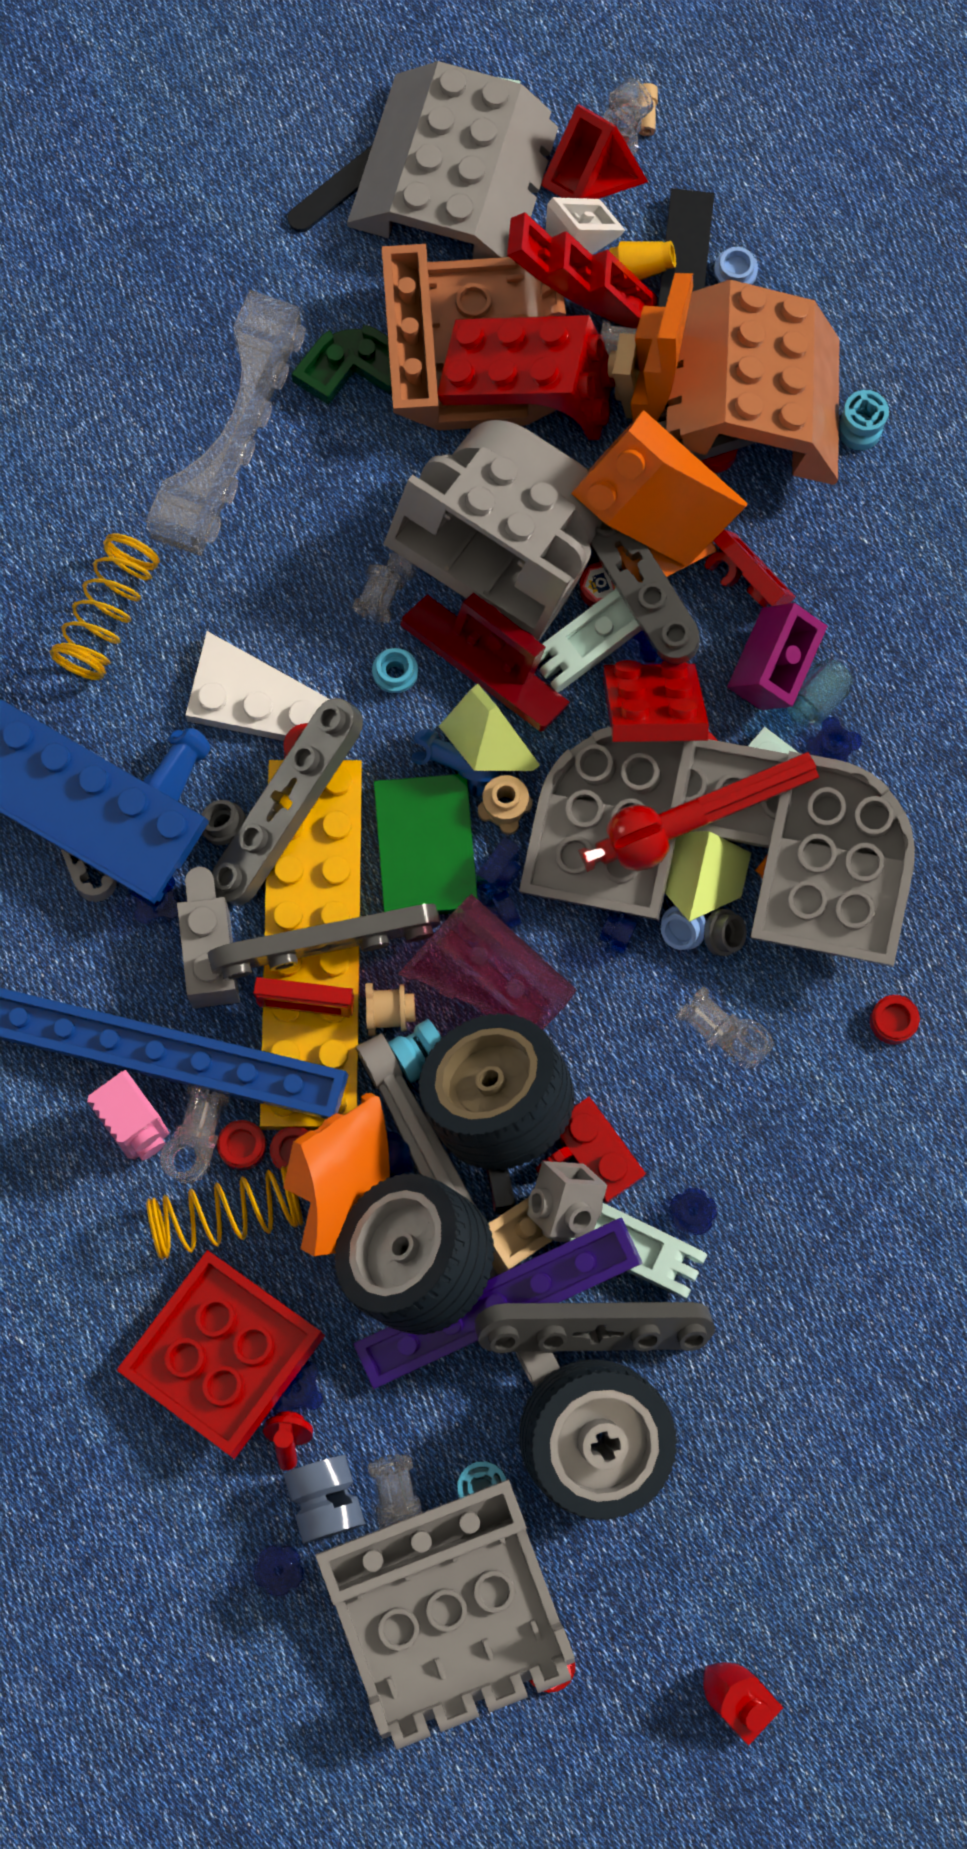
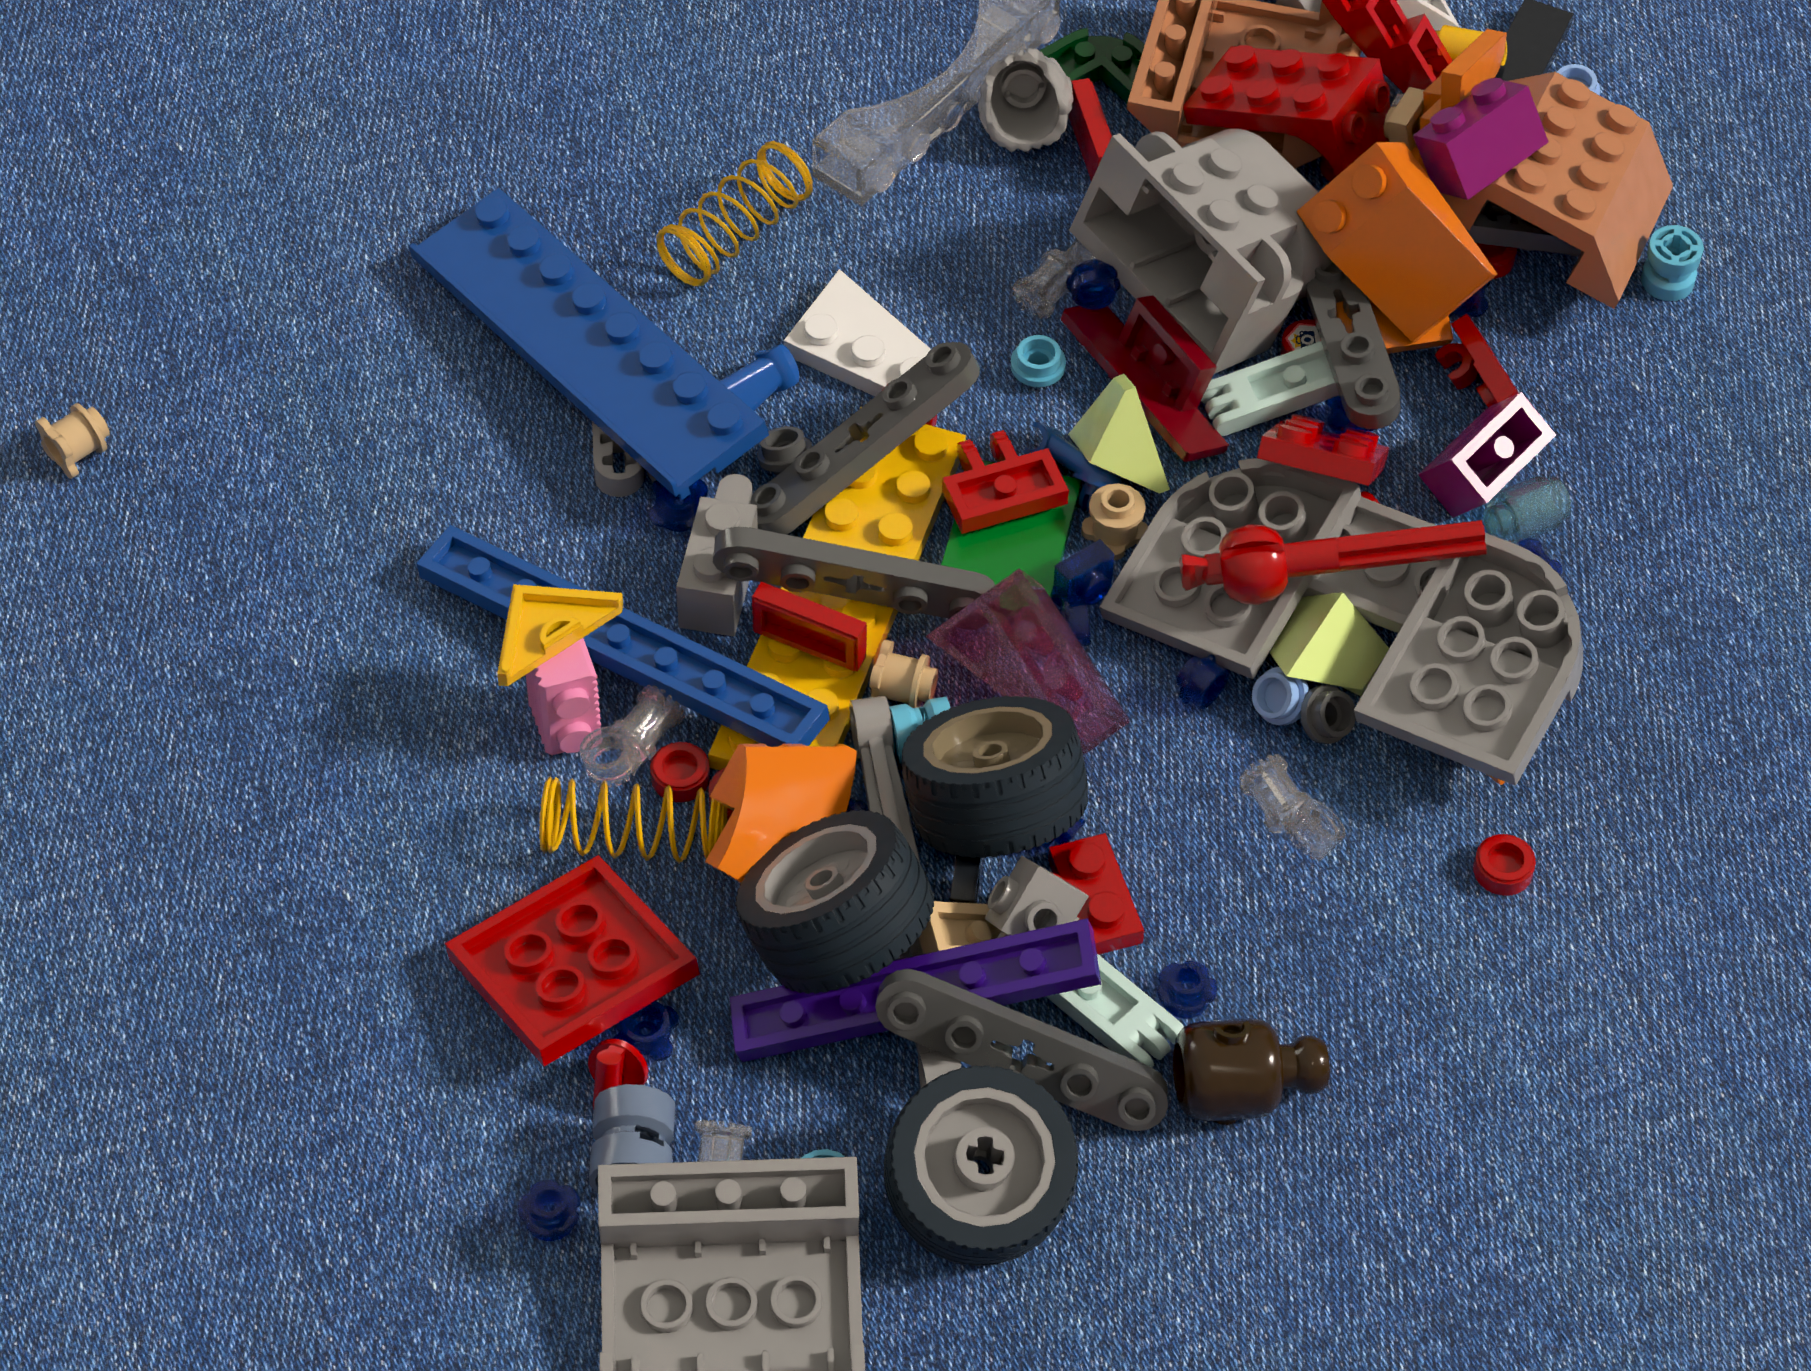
camera: 20 degrees right, 20 degrees down
(102, 1086) = (547, 622): none -> yellow tile
(305, 424) = (1025, 101): none -> light grey hair
(368, 435) = (1089, 124): none -> red tile
(410, 811) = (1003, 489): none -> red hinge
(418, 589) = (1093, 284): none -> clear blue plate
(702, 384) = (1480, 137): none -> magenta brick
(760, 1278) = (1241, 1069): none -> dark brown piece

